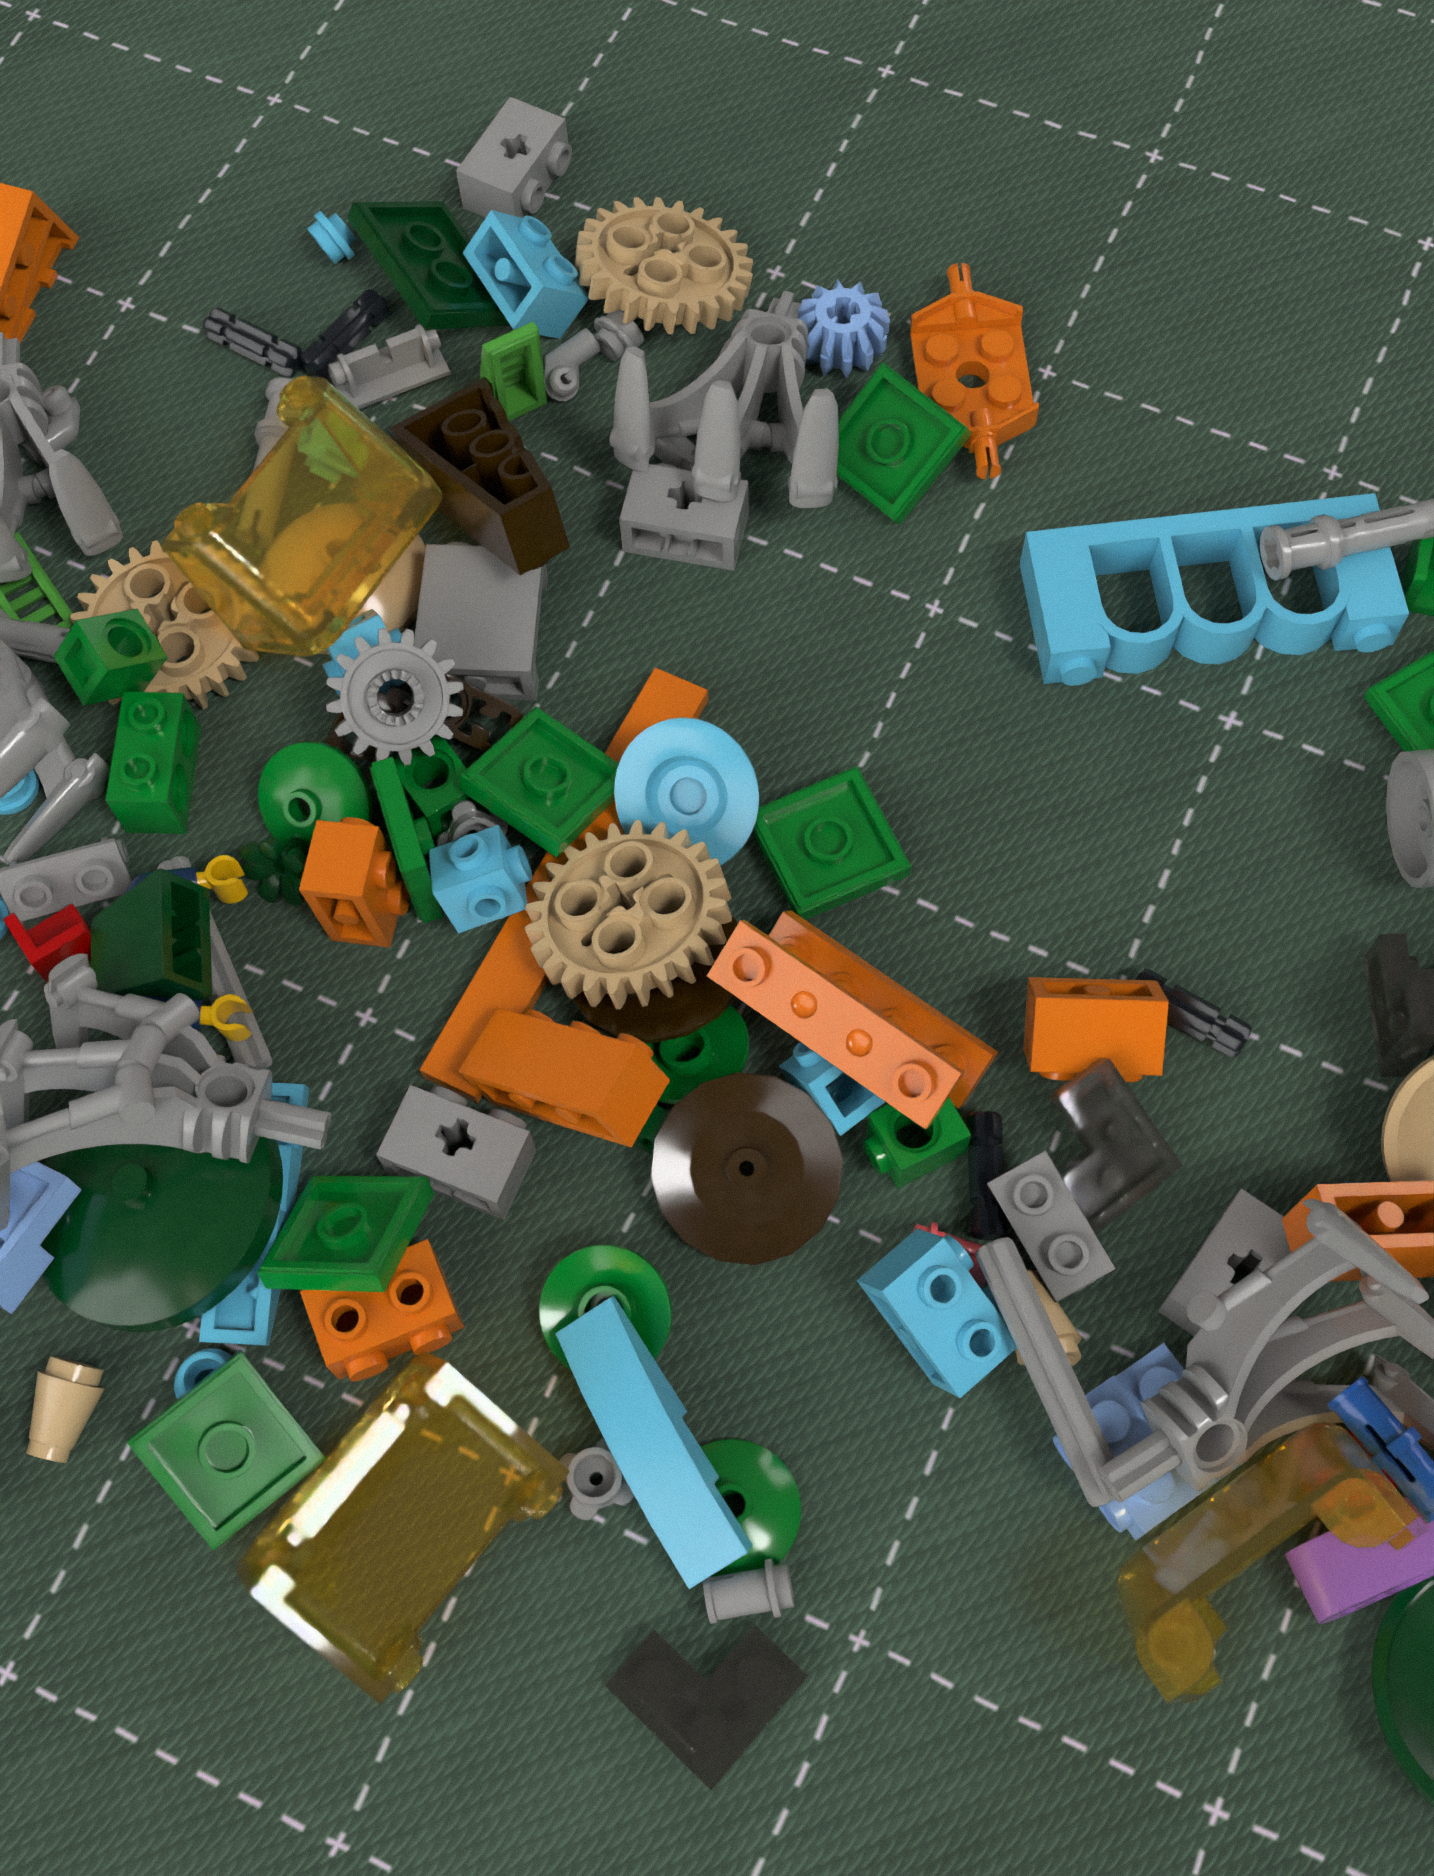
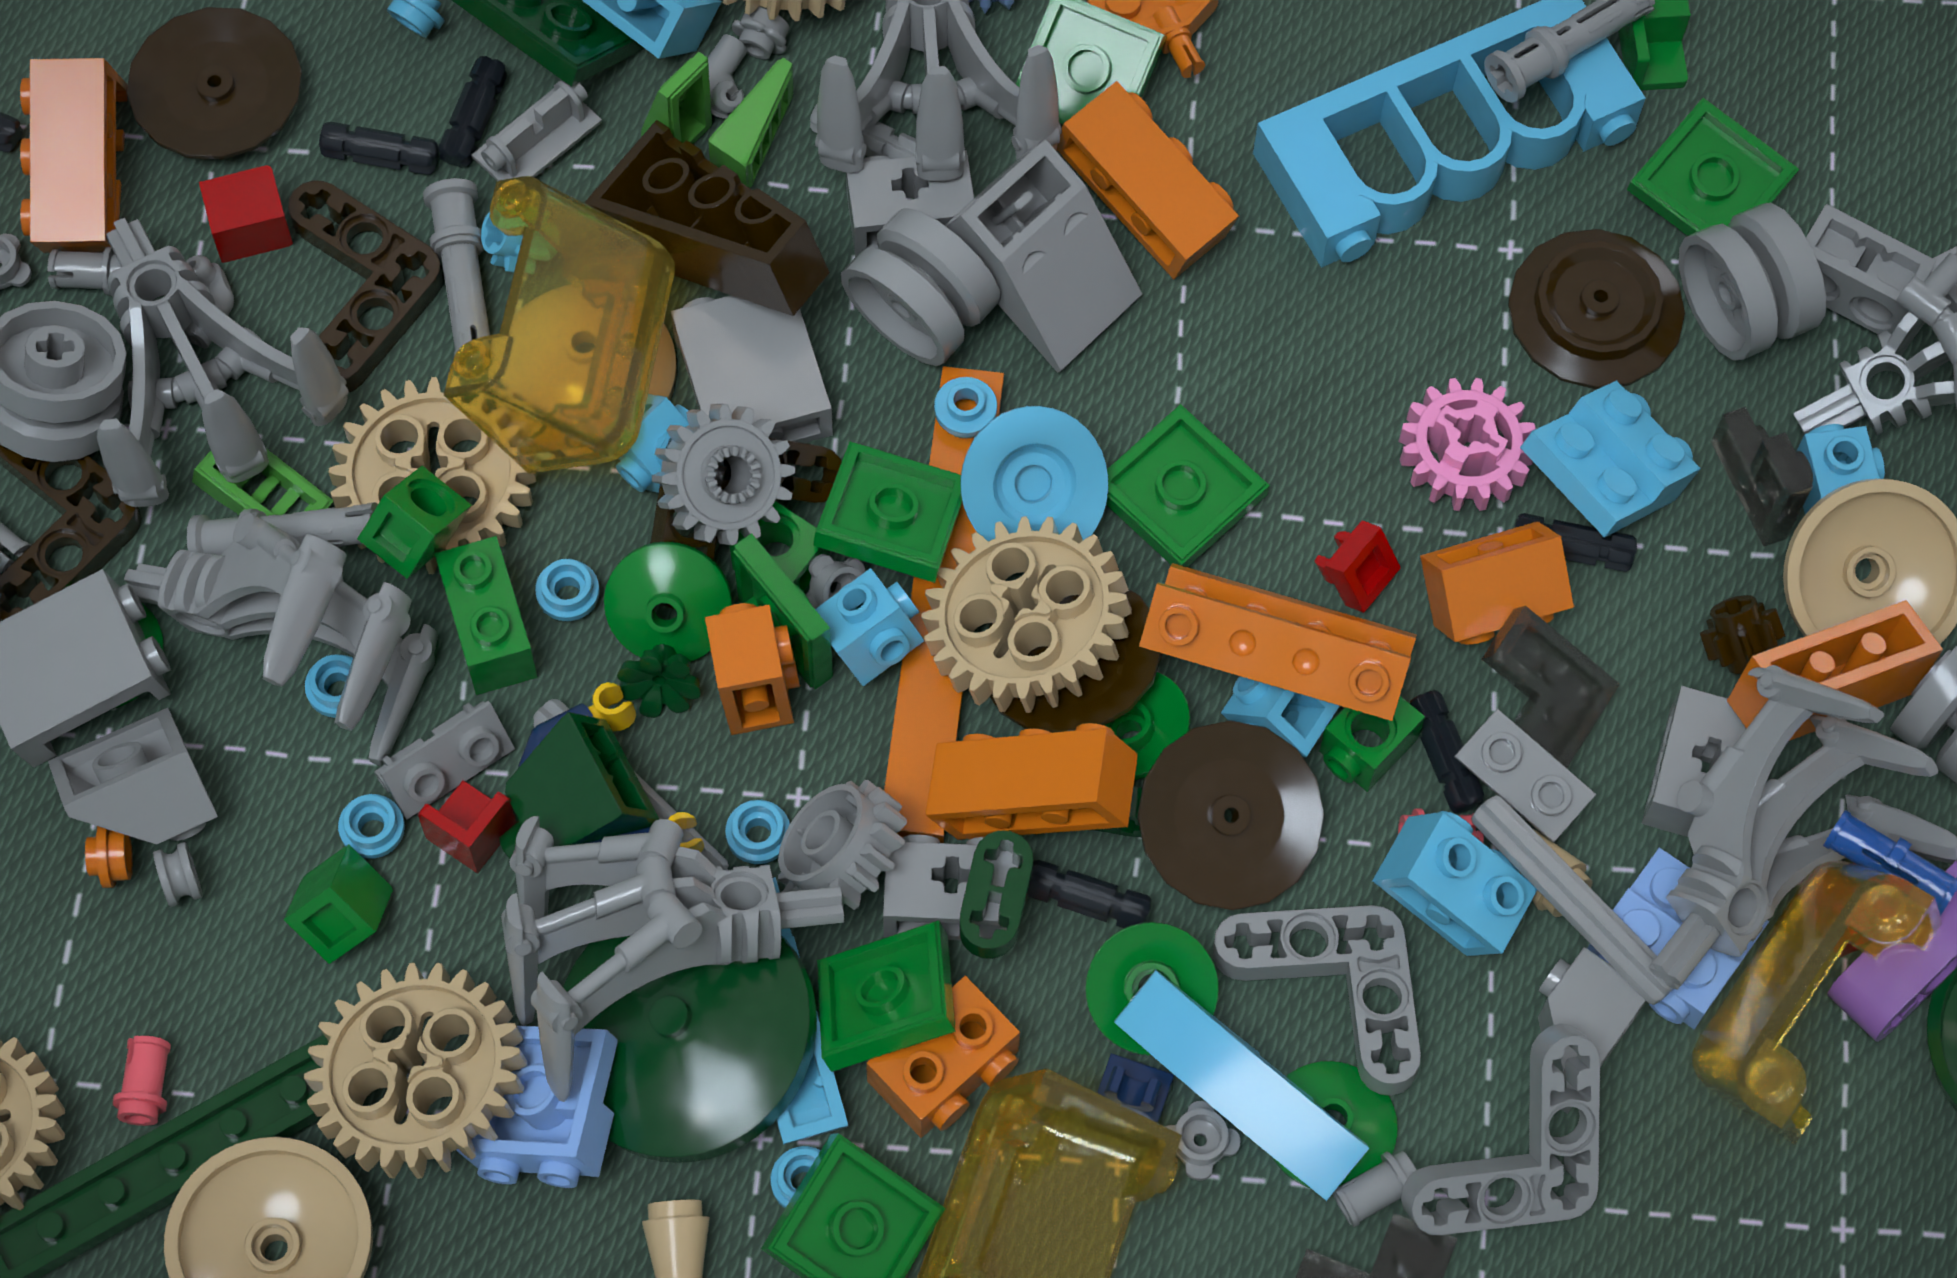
camera: 25 degrees left, 0 degrees up
(109, 362) = (245, 213): none -> red panel
(141, 251) = (214, 83): none -> dark brown piece
(209, 445) = (379, 268): none -> dark brown beam
(231, 752) = (567, 573): none -> medium azure plate
(304, 1021) = (756, 814): none -> medium azure plate
(366, 1073) = (842, 841): none -> light grey gear
(472, 1161) = (1010, 897): none -> dark green beam
(549, 1410) = (1136, 1086): none -> dark blue tile
(571, 413) = (750, 129): none -> bright green slope
(586, 1199) = (1088, 895): none -> black axle
(649, 692) = (960, 422): none -> medium azure plate
(655, 586) = (920, 286): none -> light grey wheel
(779, 591) = (1048, 254): none -> light grey slope
(821, 1359) = (1360, 964): none -> light grey beam
(904, 553) = (1146, 179): none -> orange brick
(908, 1637) = (1532, 1172): none -> light grey beam
(970, 969) = (1360, 565): none -> red tile
(1020, 1495) = (1591, 999): none -> light grey slope
(1117, 894) = (1463, 470): none -> bright pink gear
(1253, 943) = (1612, 458): none -> medium azure plate
(1294, 799) = (1596, 308): none -> dark brown piece
(1324, 1153) = (1740, 630): none -> dark brown gear

